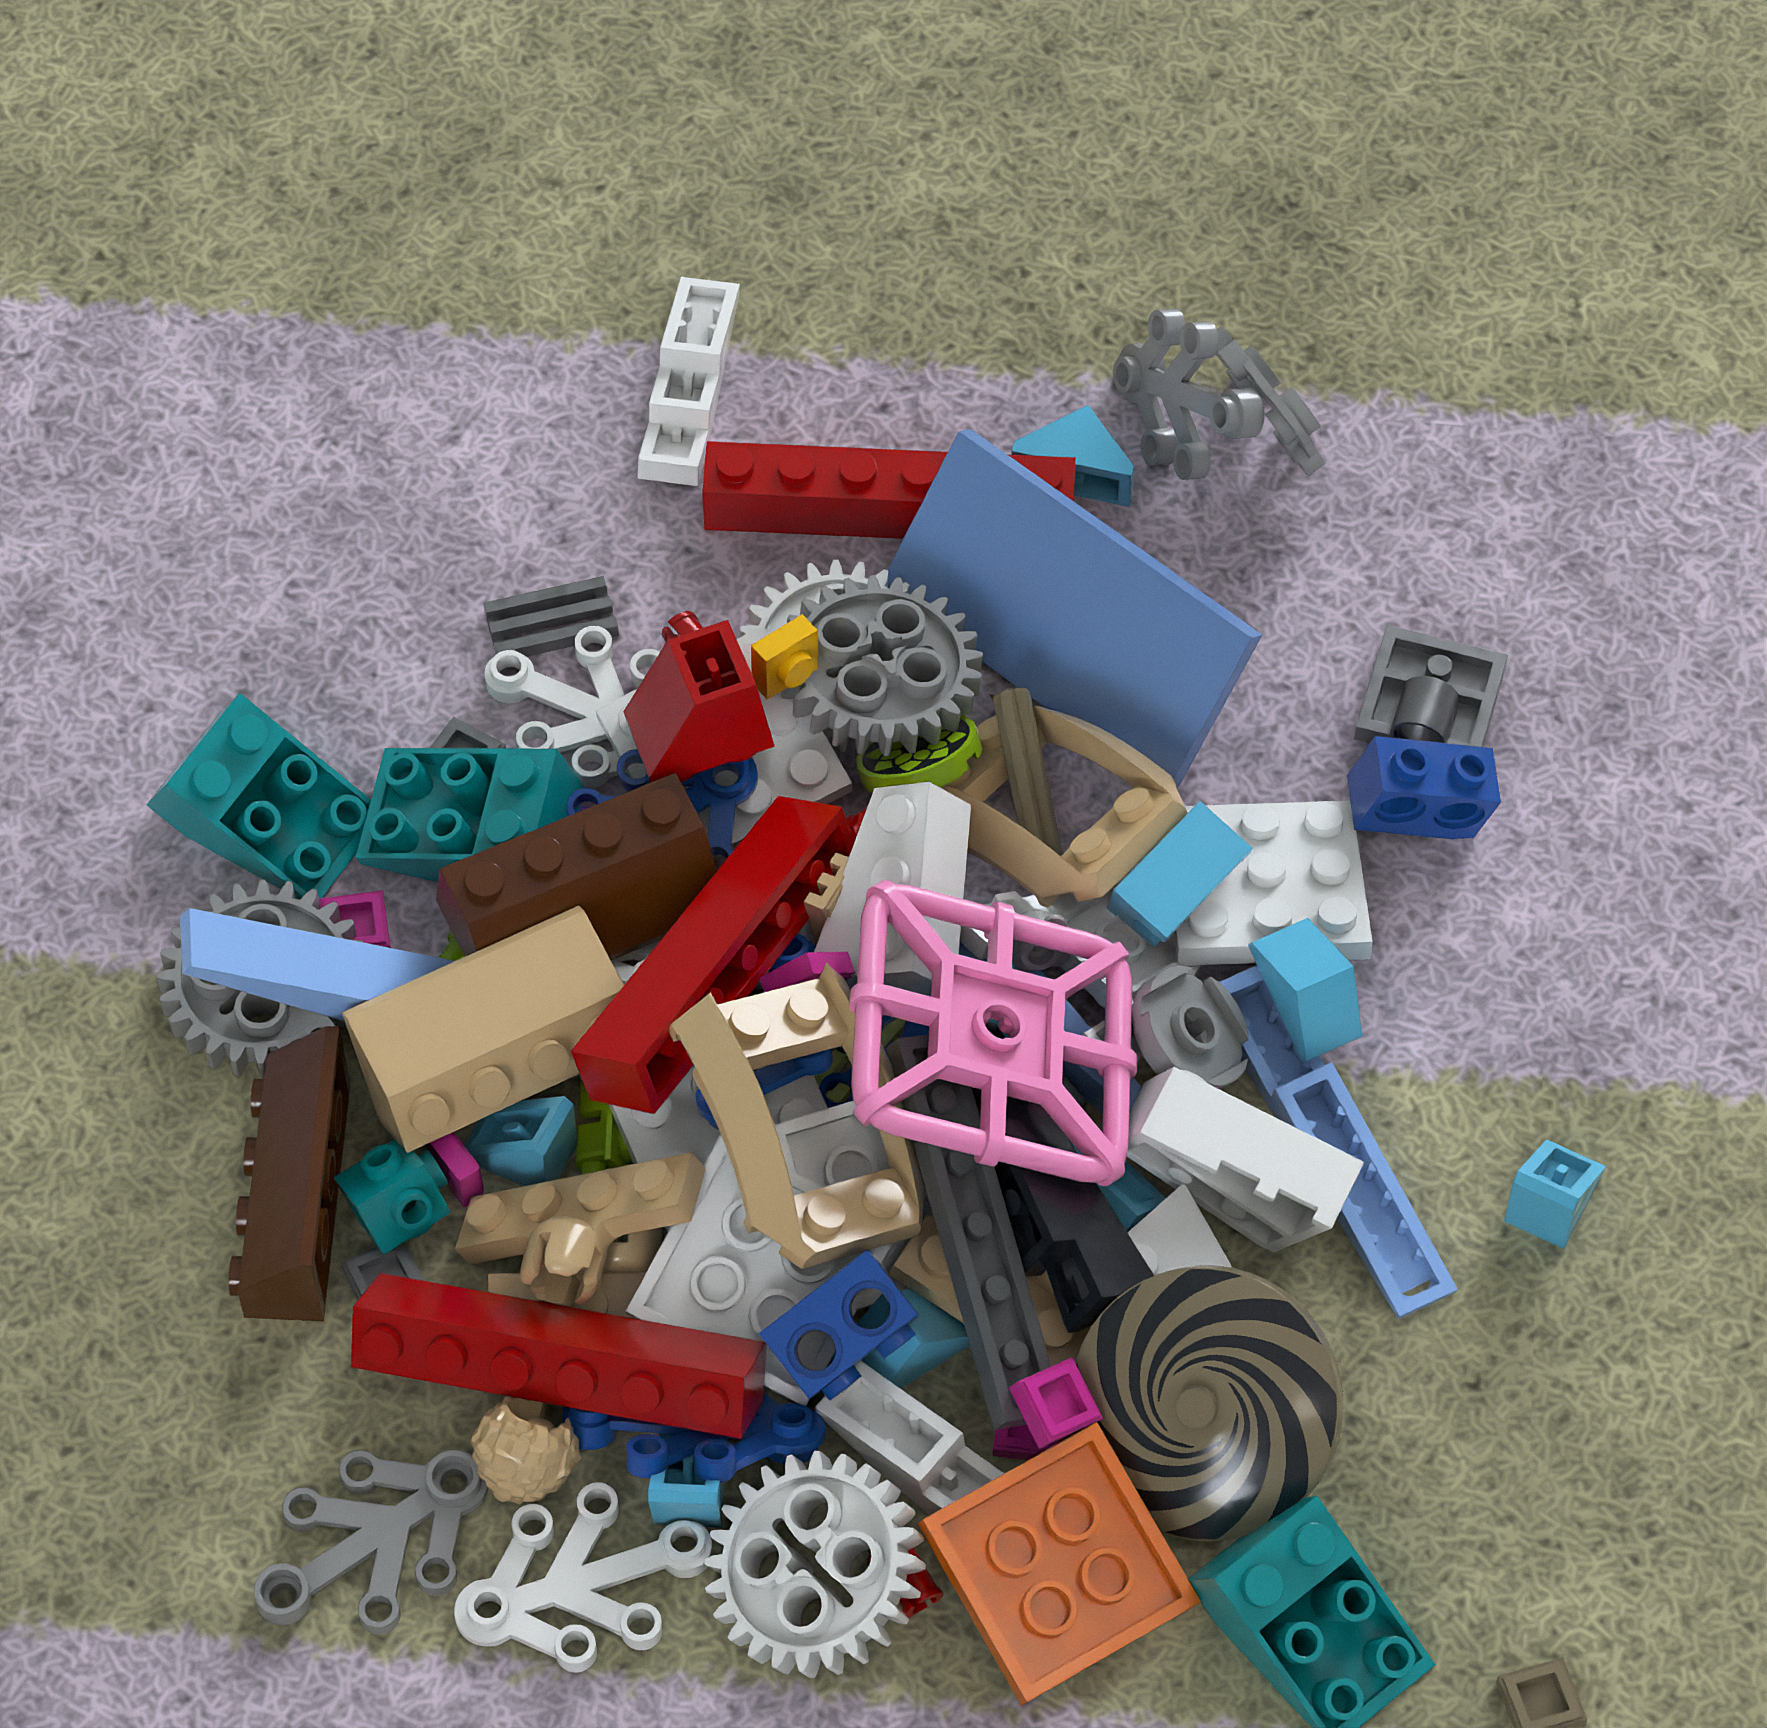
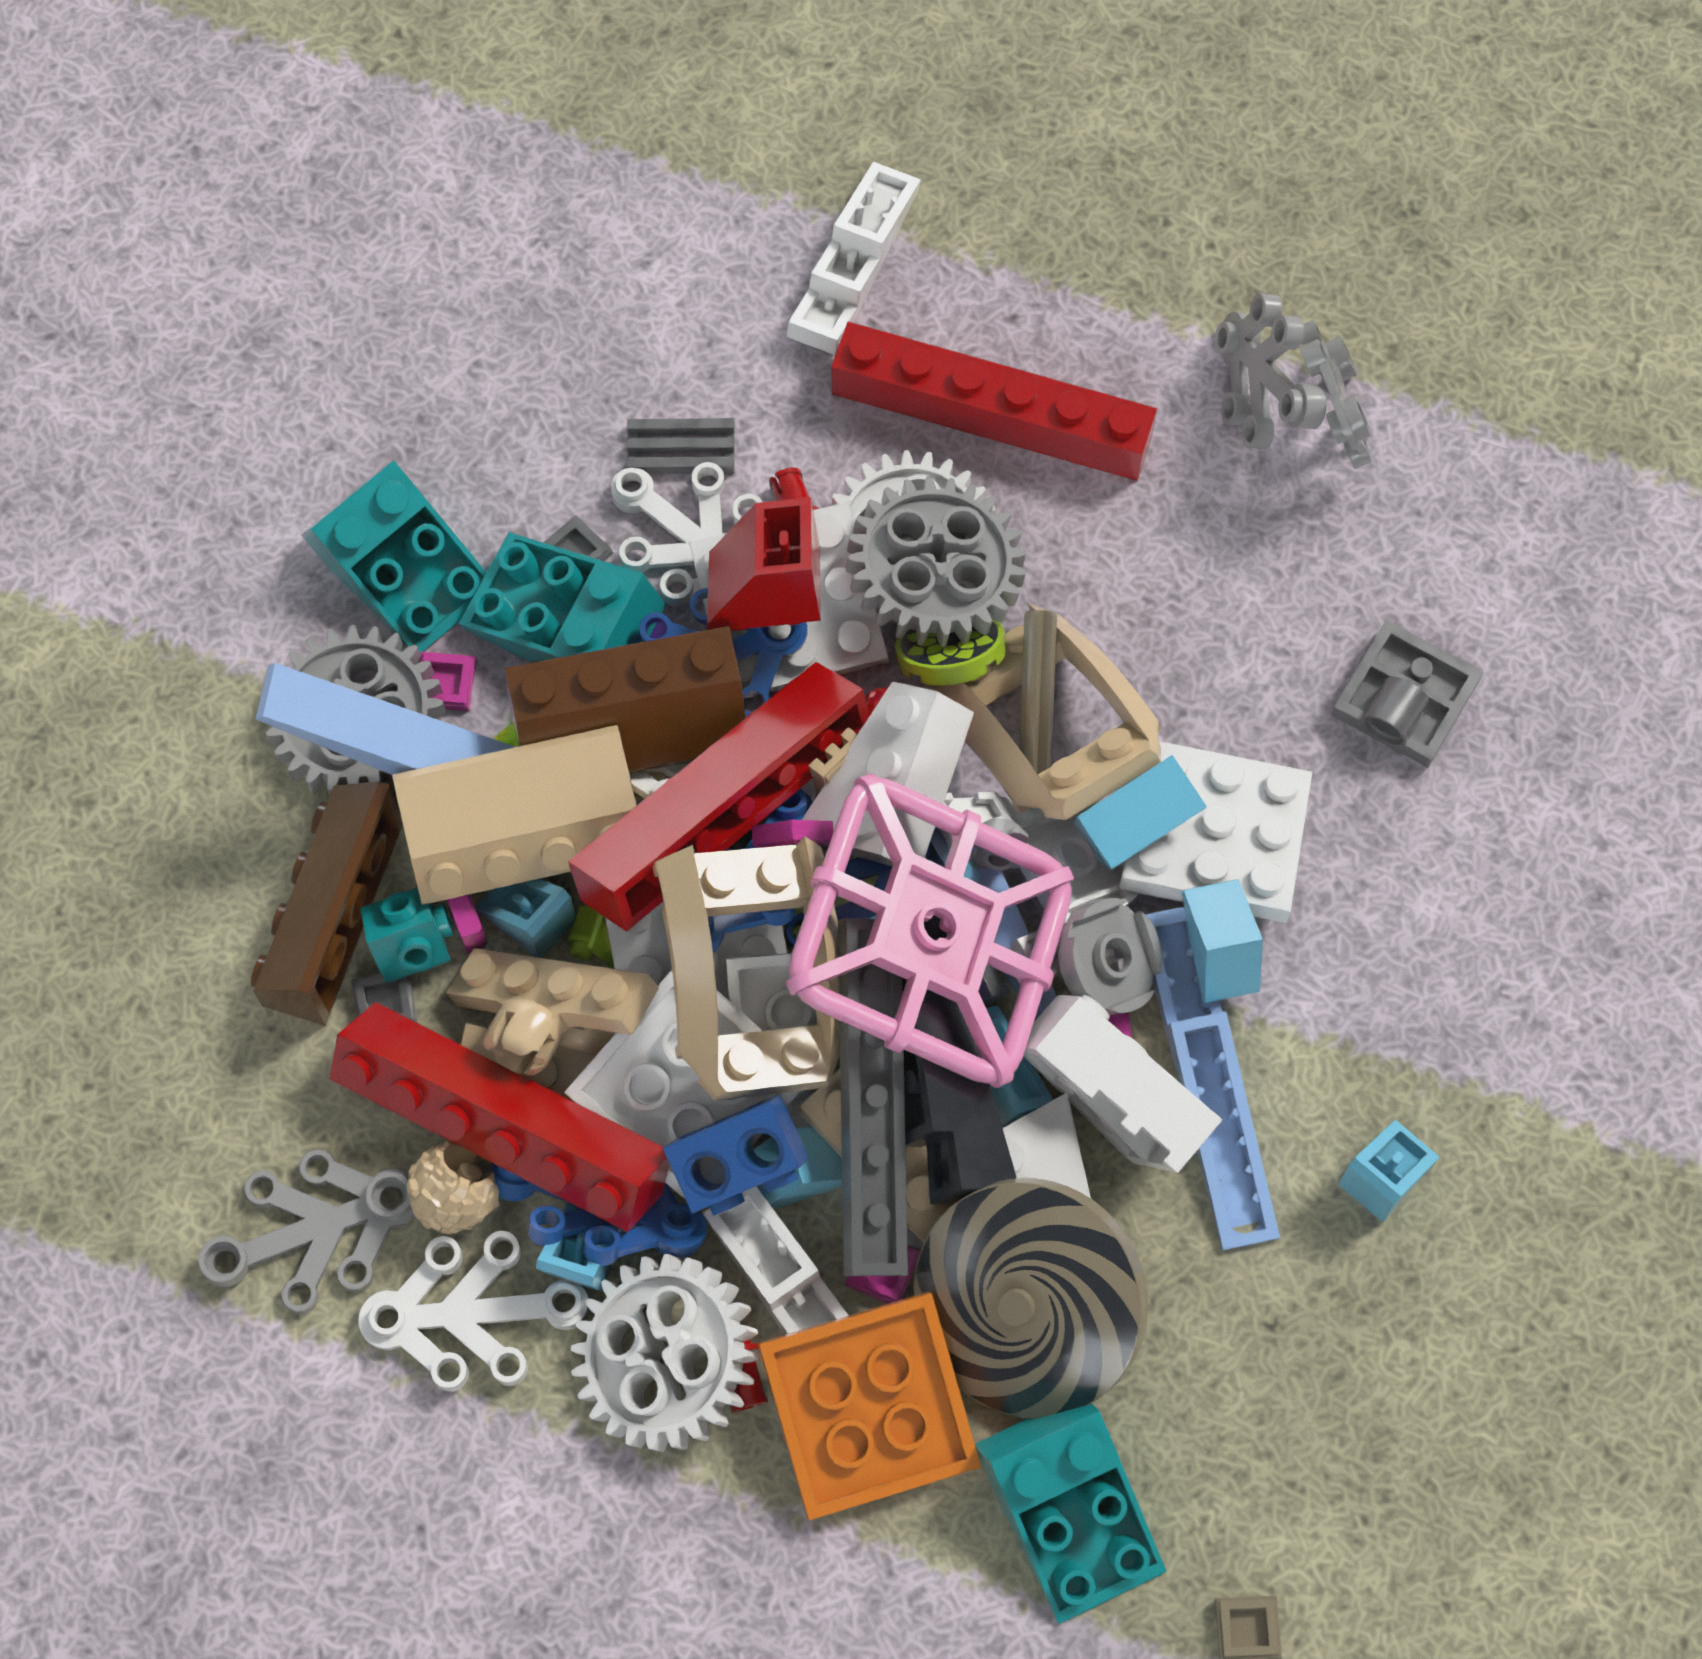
camera: 15 degrees right, 10 degrees up
(785, 657) = (850, 542): yellow plate -> none
(1055, 1403) = (900, 1268): dark pink tile -> none
(1073, 606) = (1115, 546): medium blue tile -> none
(1100, 464) = (1171, 392): medium azure slope -> none
(1423, 788) = (1375, 779): blue brick -> none

